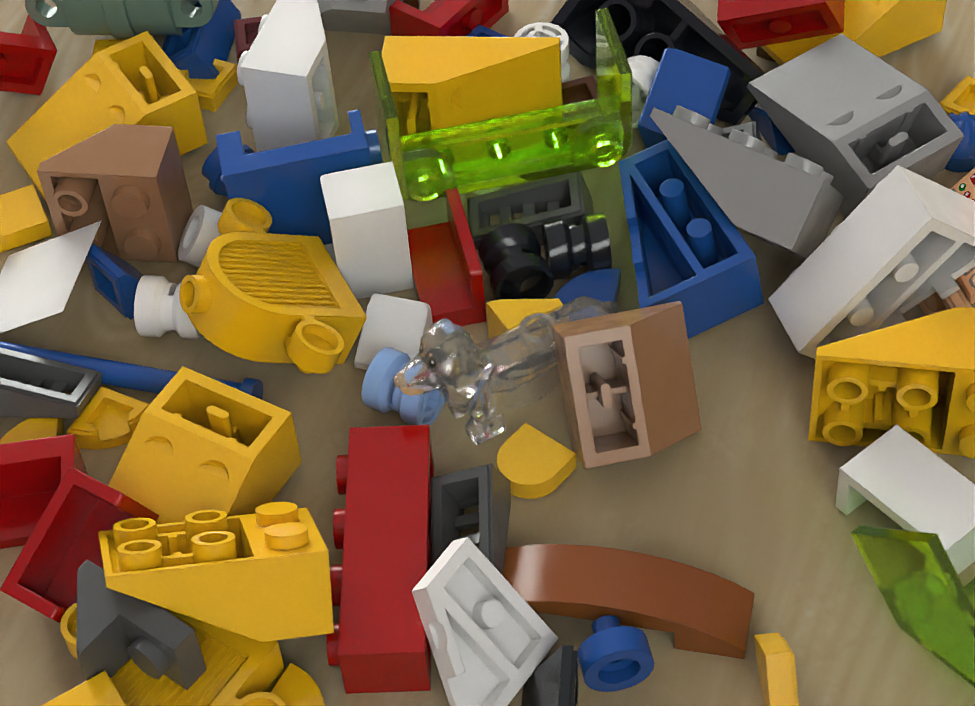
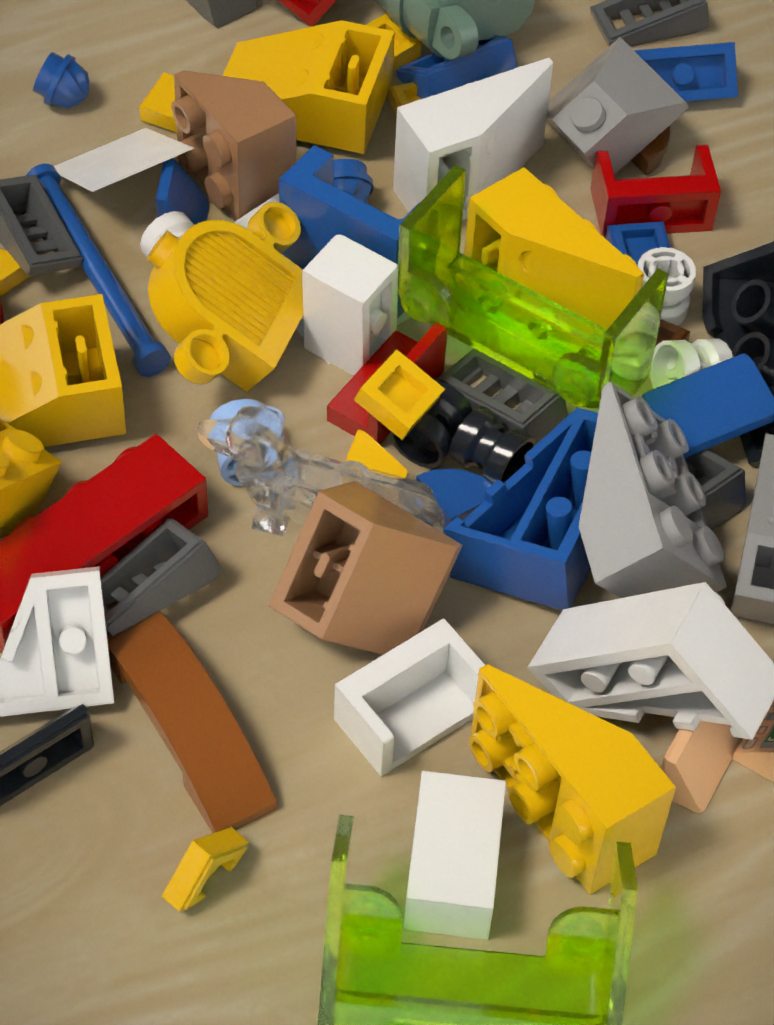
camera: 40 degrees right, 5 degrees up
(107, 420) = (49, 287): yellow tile -> none
(392, 324) = (298, 396): white slope -> none
(492, 251) = (399, 394): none -> yellow tile
(534, 463) = (255, 570): yellow tile -> none
(614, 656) = (123, 747): blue tile -> none
(751, 441) = (409, 697): none -> white panel

